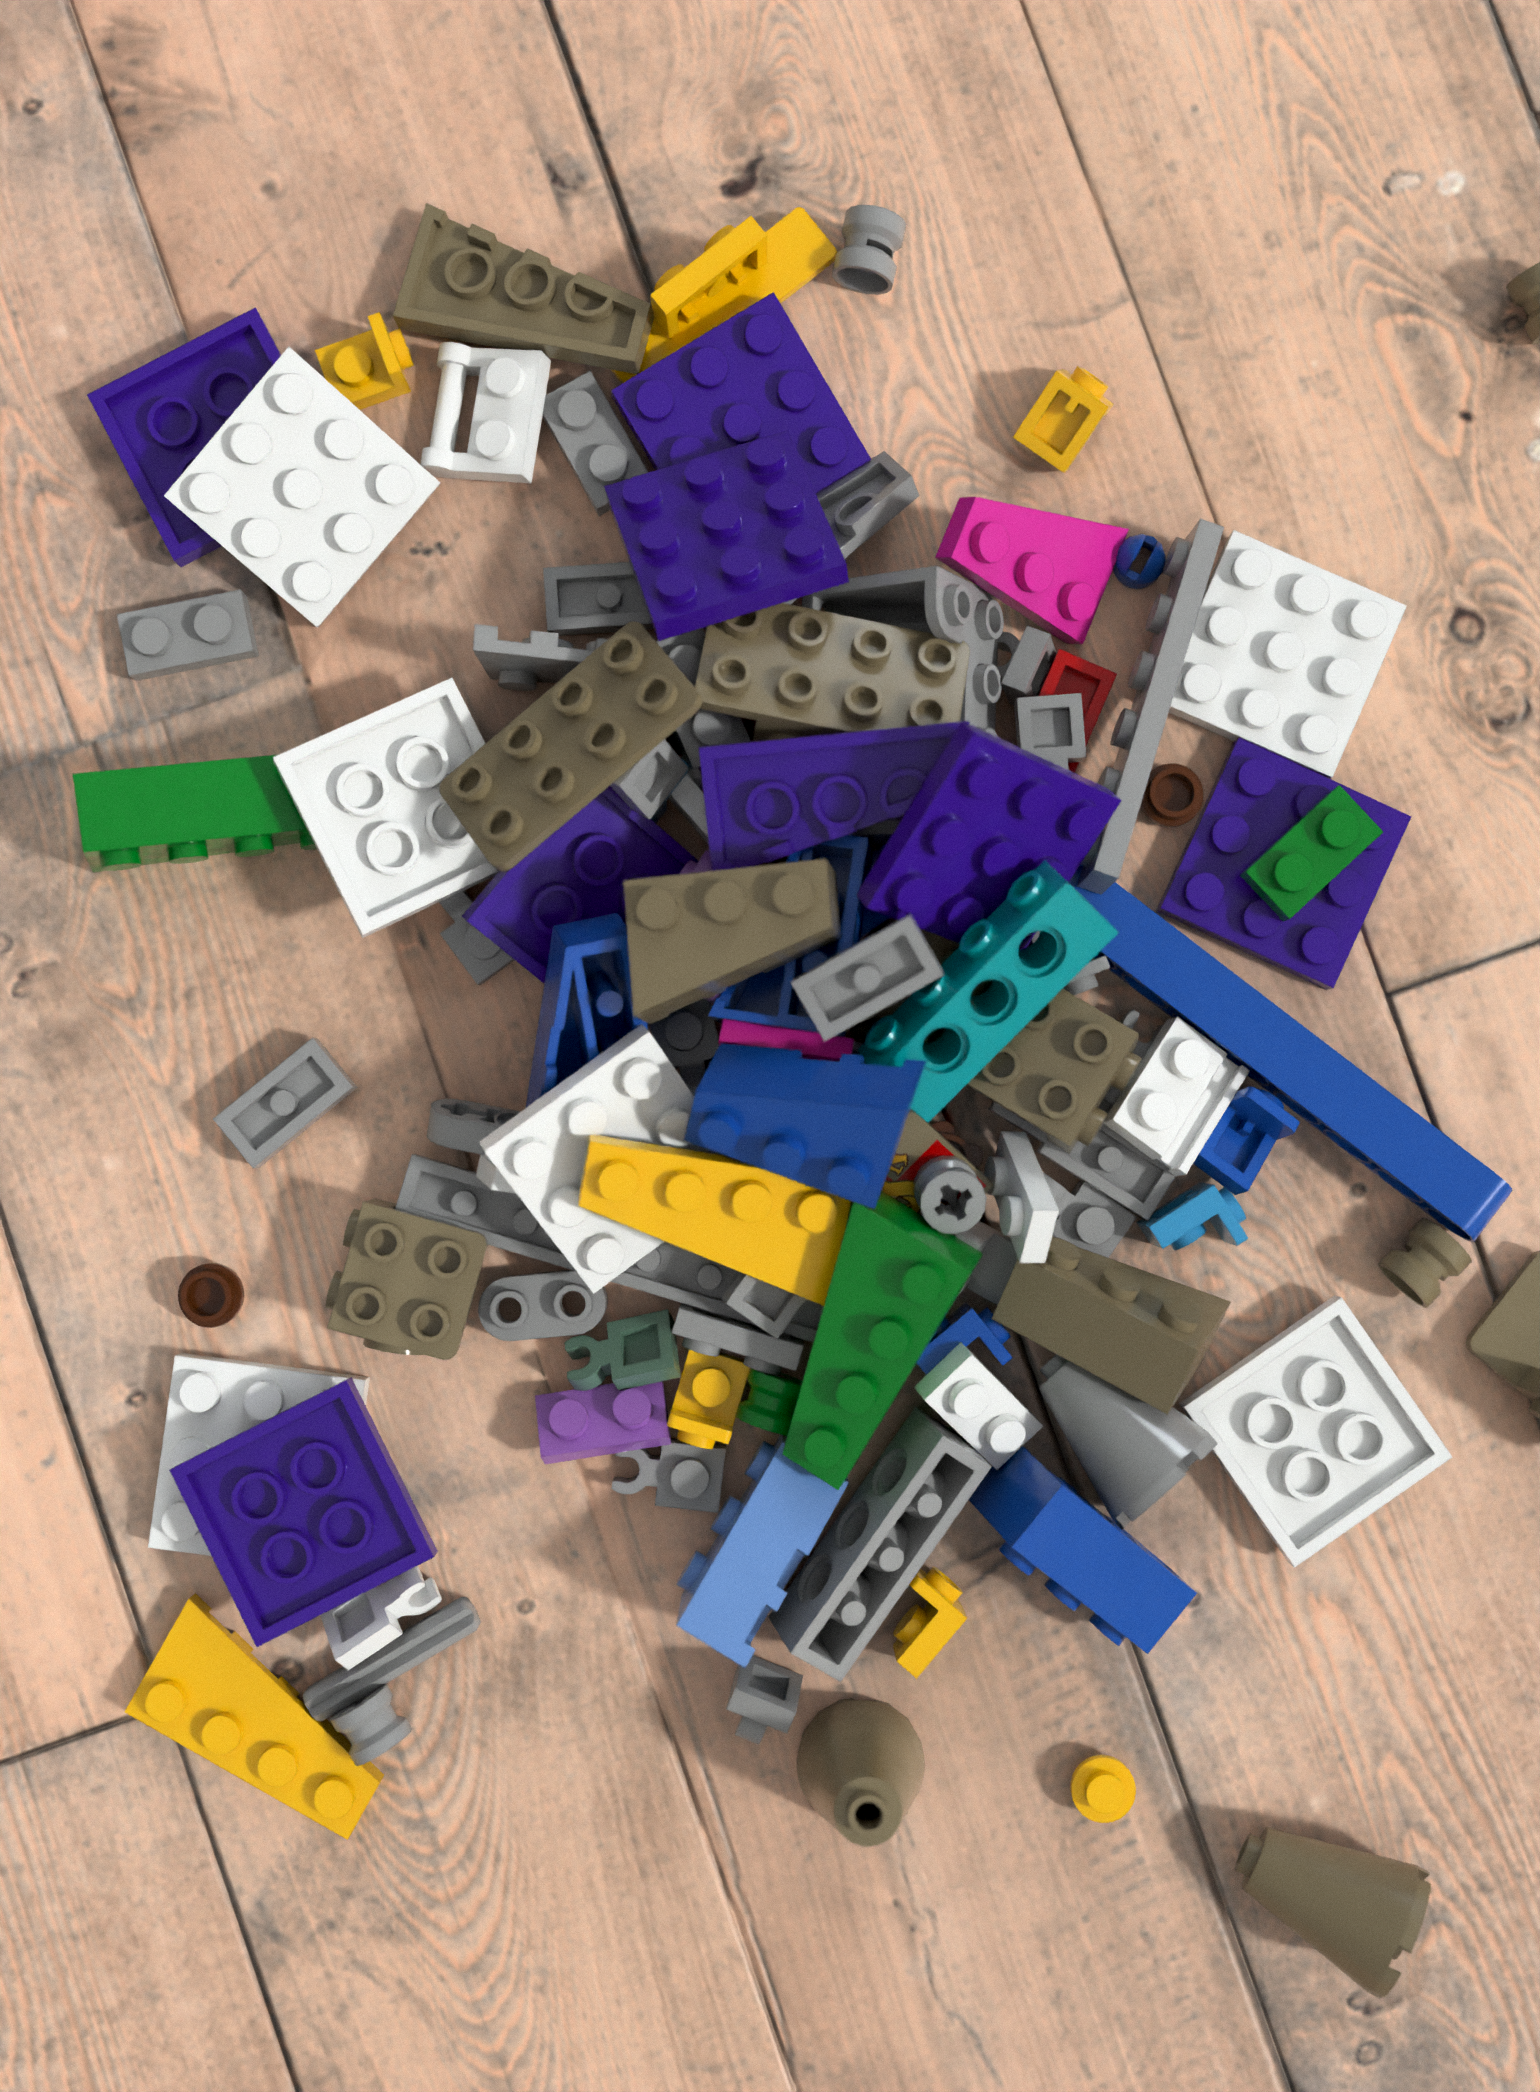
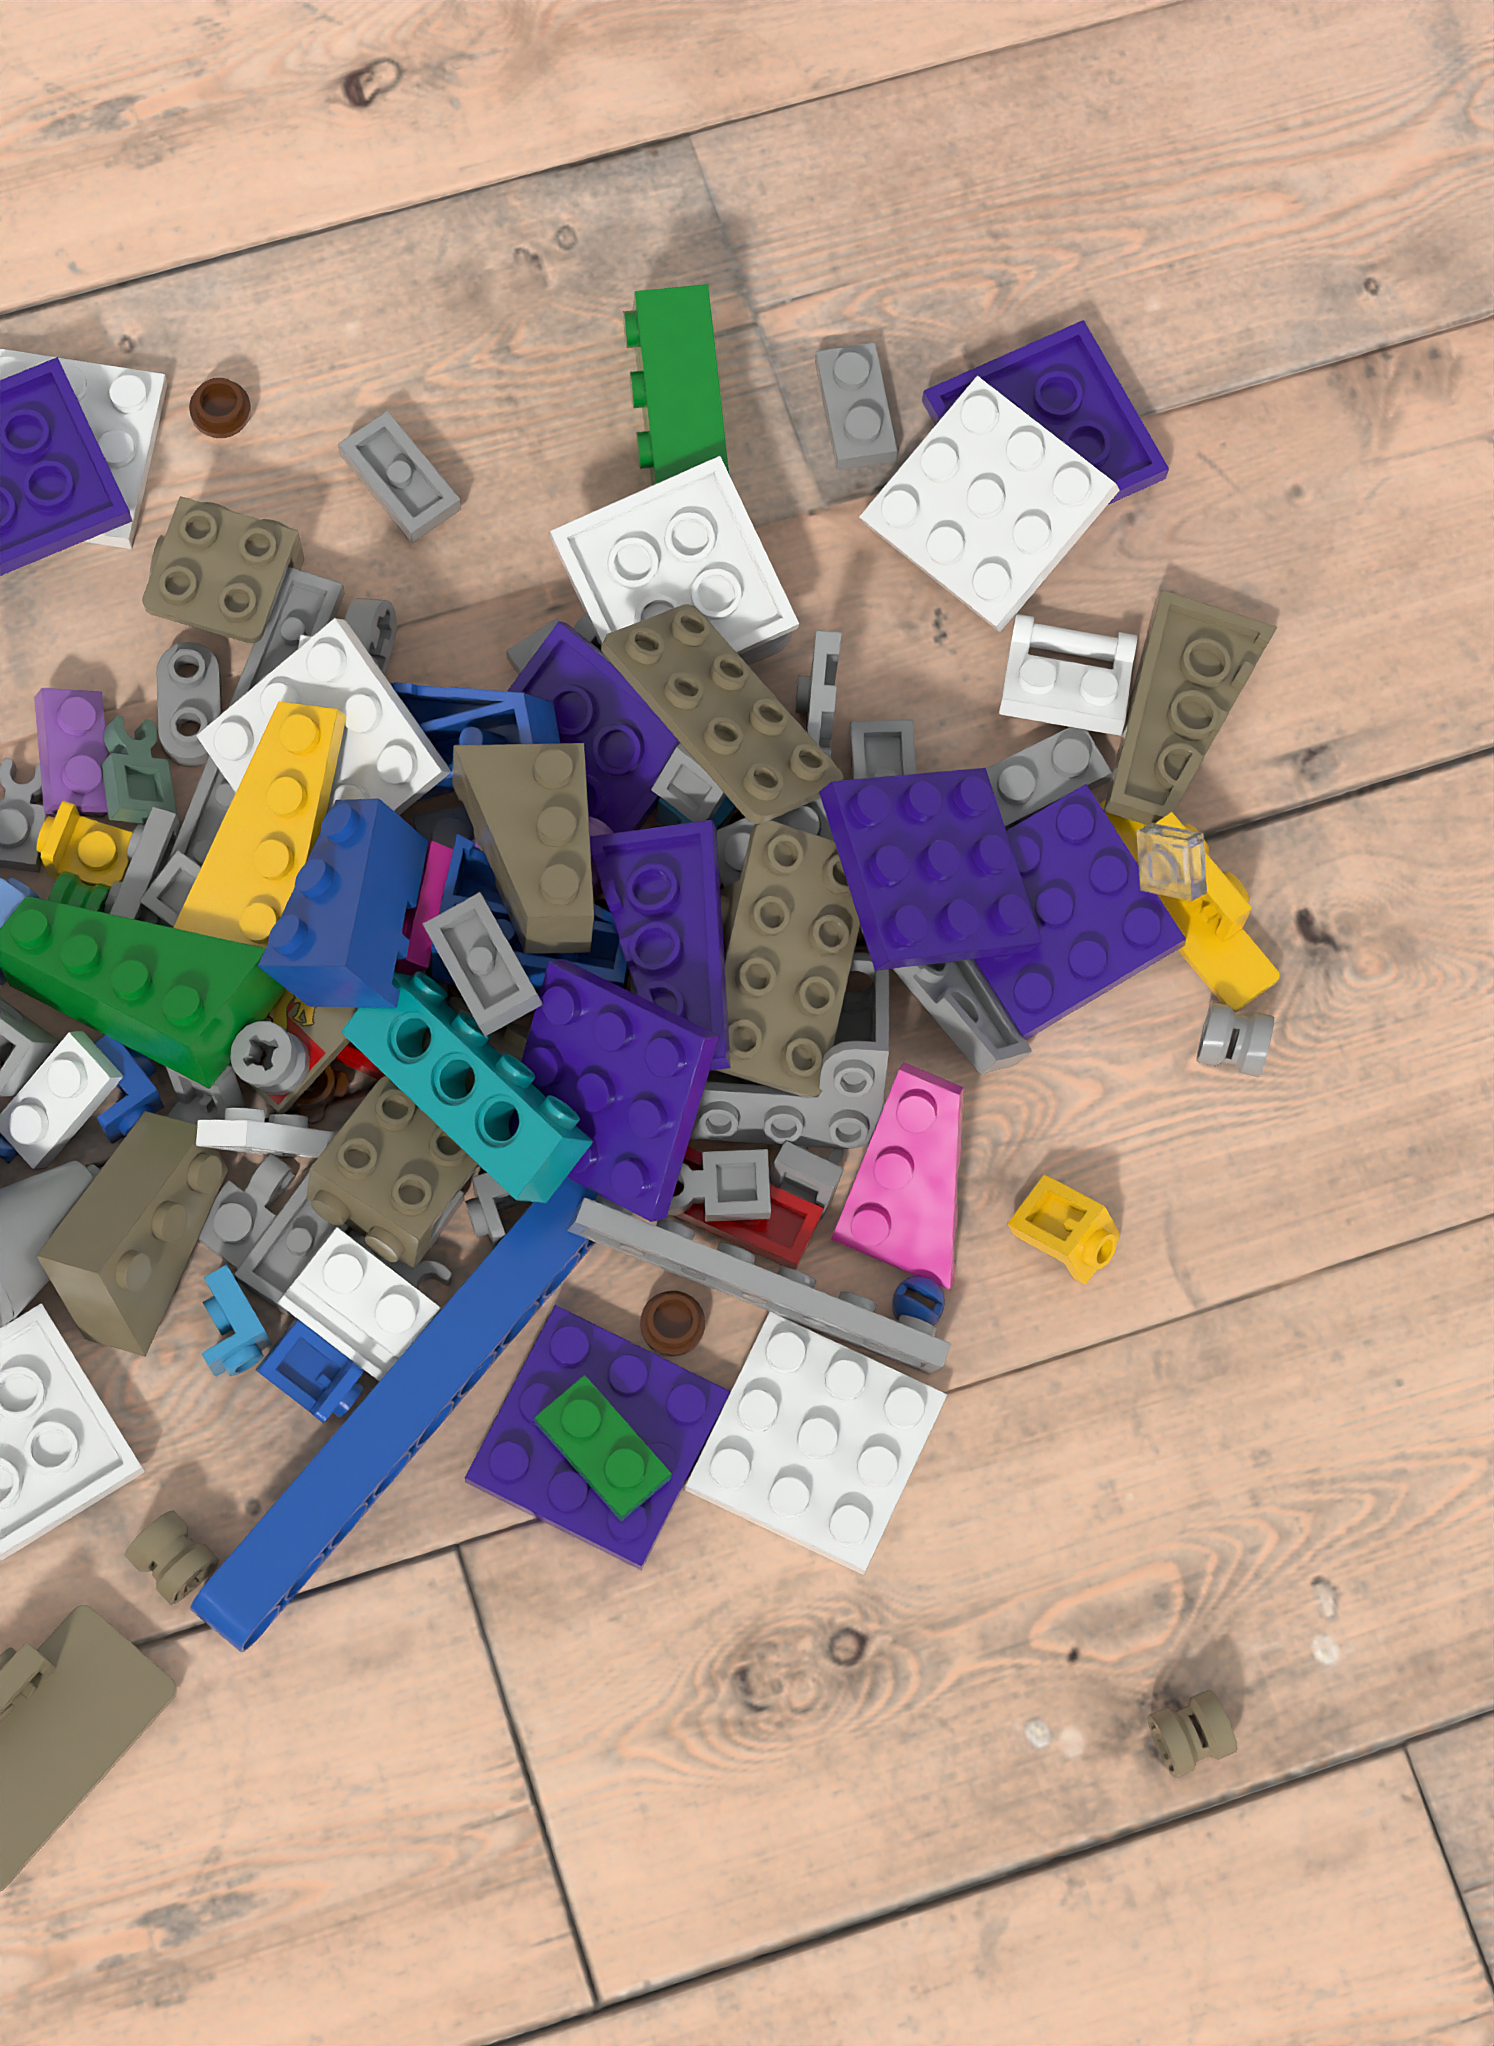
camera: 90 degrees right, 15 degrees down
(368, 365) = (1115, 570): yellow bracket -> none
(706, 292) = (1171, 861): none -> clear plate

